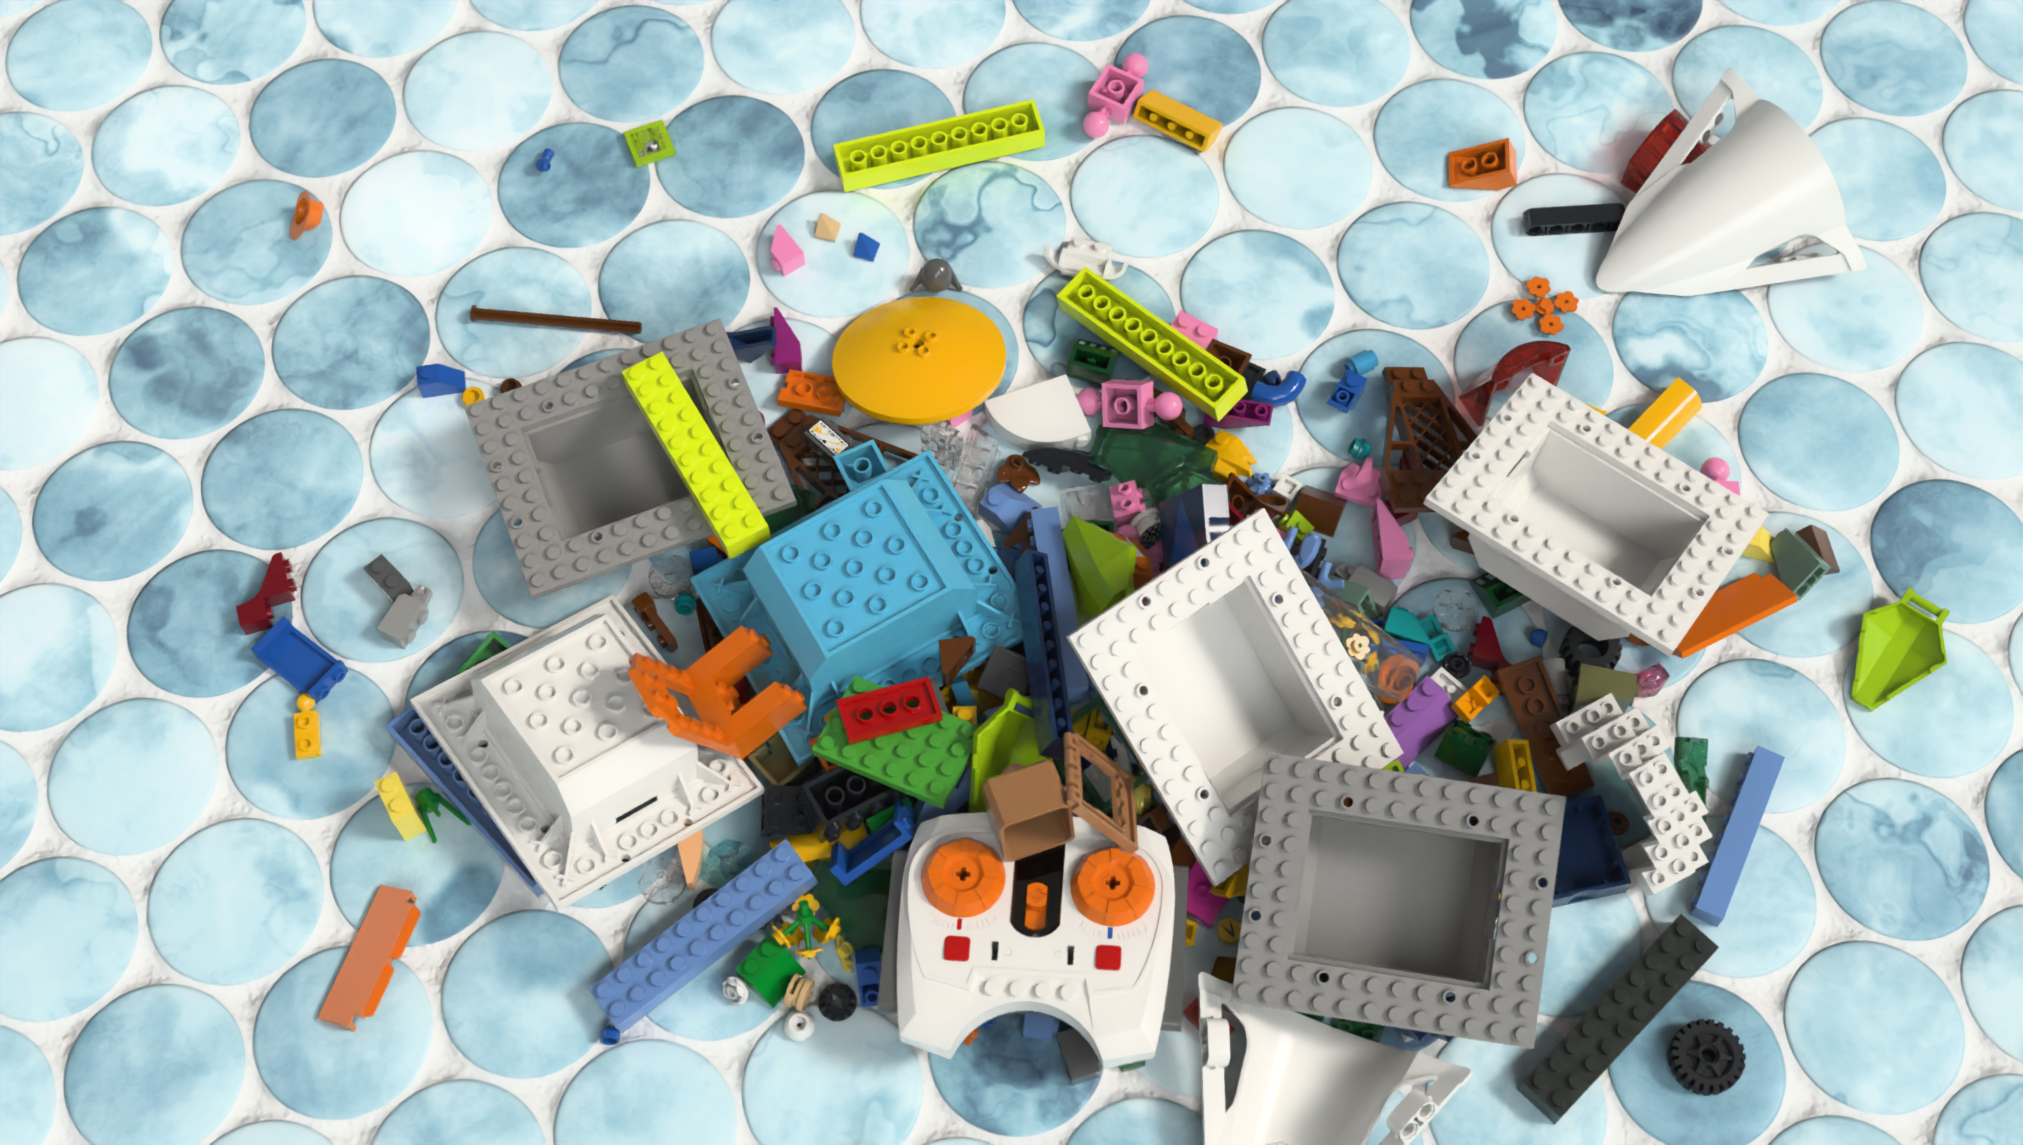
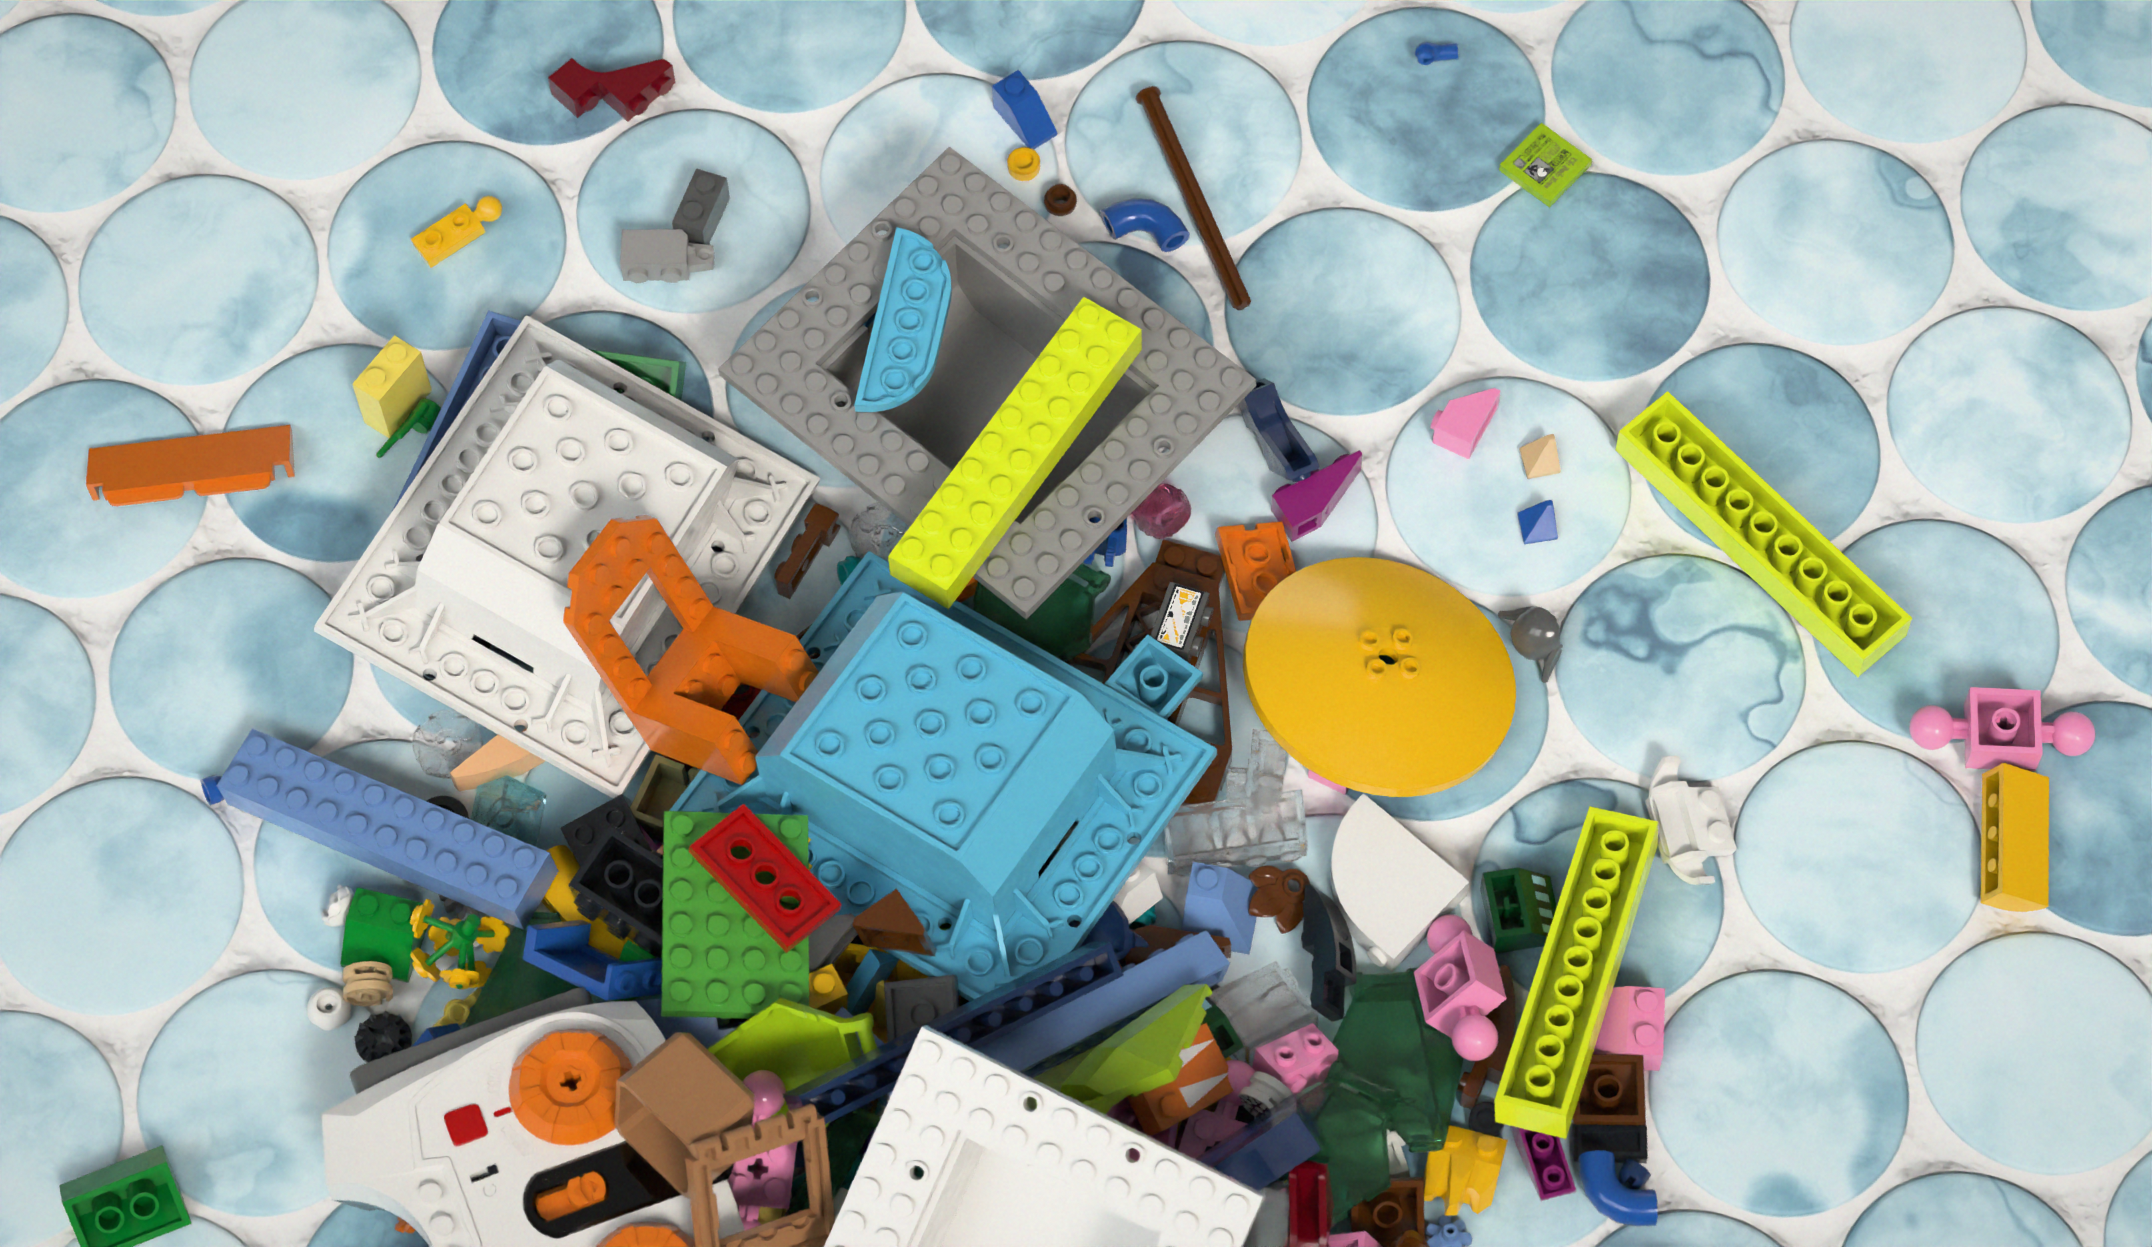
camera: 65 degrees right, 0 degrees up
(299, 660) = (543, 171): blue panel -> none
(552, 349) = (1146, 216): none -> blue cylinder
(572, 476) = (906, 325): none -> medium azure plate

